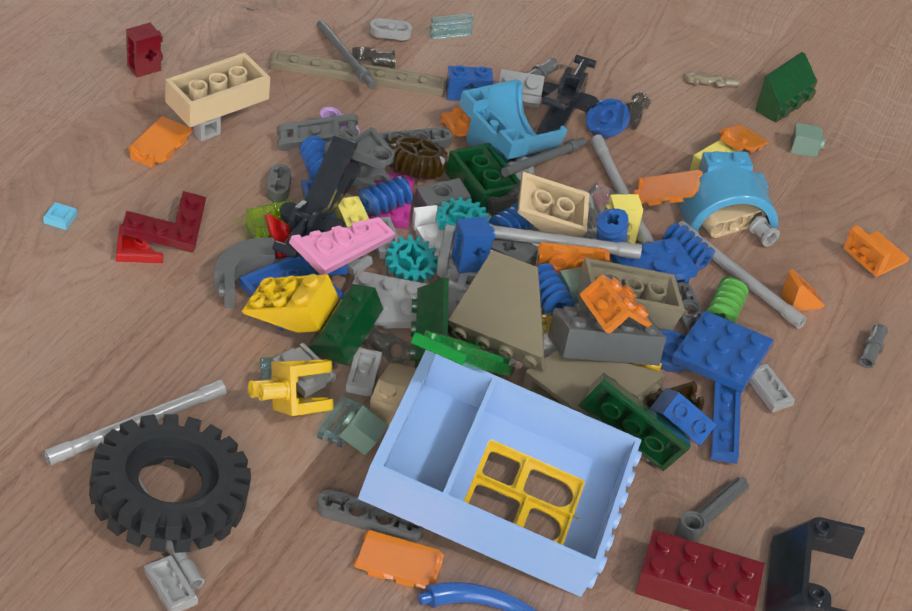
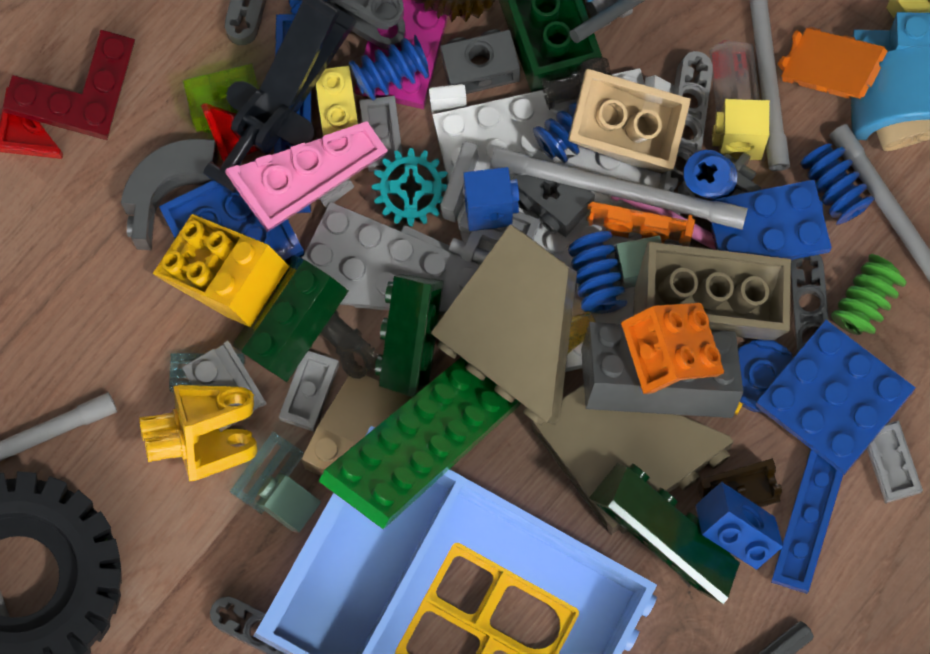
camera: 20 degrees right, 30 degrees up
(450, 212) = (509, 111): teal gear -> none

